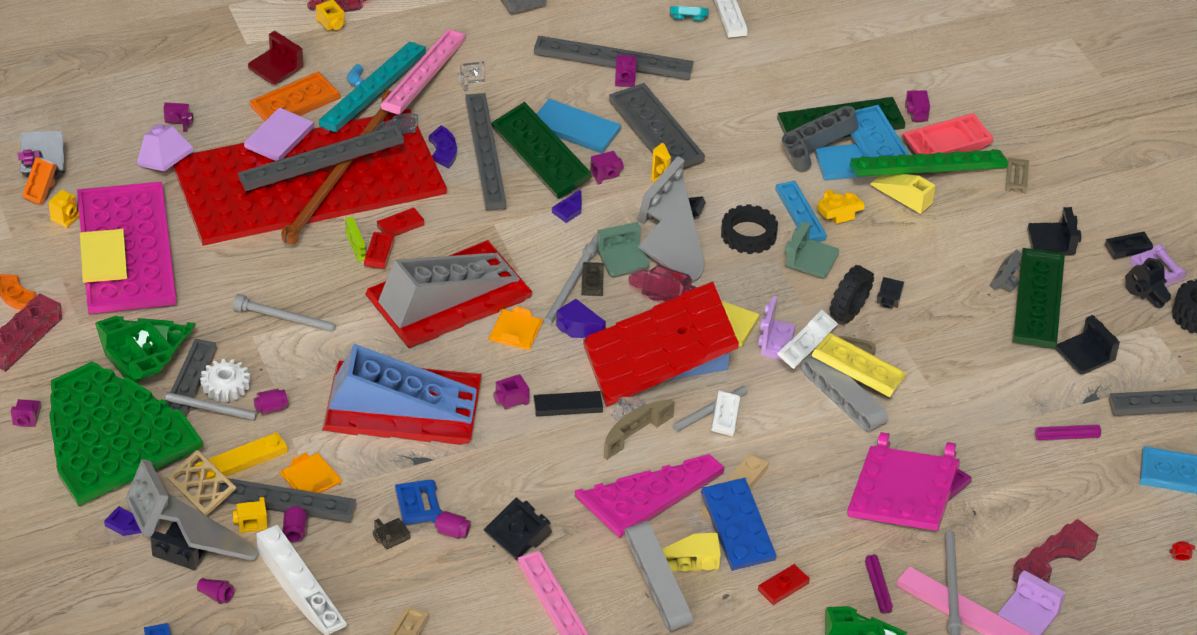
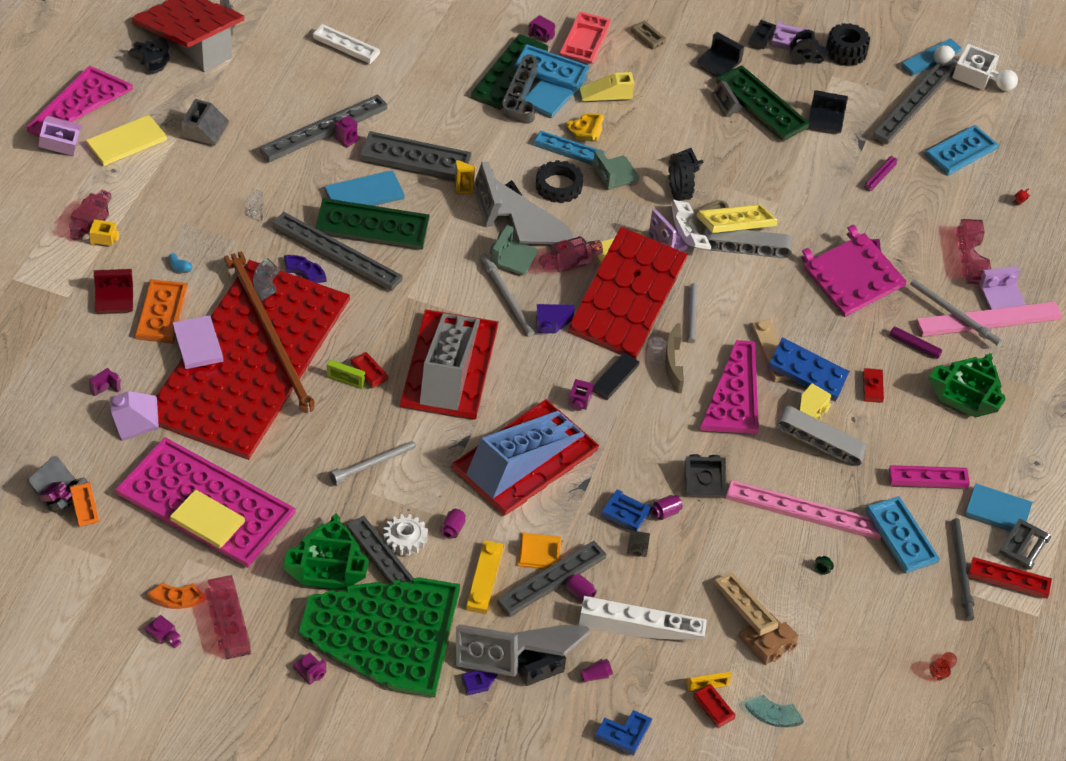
camera: 50 degrees left, 5 degrees up
(63, 208) = (127, 510): yellow brick -> none
(211, 406) = (422, 559): light grey bar -> none
(217, 497) = (503, 598): tan window -> none
(250, 516) = (550, 606): yellow brick -> none
(320, 158) = (255, 336): dark grey plate -> none
(372, 86) = (205, 262): teal plate -> none
(401, 222) = (353, 341): red plate -> none
(423, 72) = (226, 226): bright pink tile -> none
(516, 328) = (518, 354): light orange piece -> none
(569, 207) = (437, 249): dark purple tile -> none
(592, 279) = (519, 286): clear smoke bracket -> none
(605, 166) = (425, 203): magenta brick -> none
(697, 13) = (332, 60): teal plate -> none
(725, 413) = (707, 308): white plate -> none
(928, 163) = (601, 62): green plate -> none

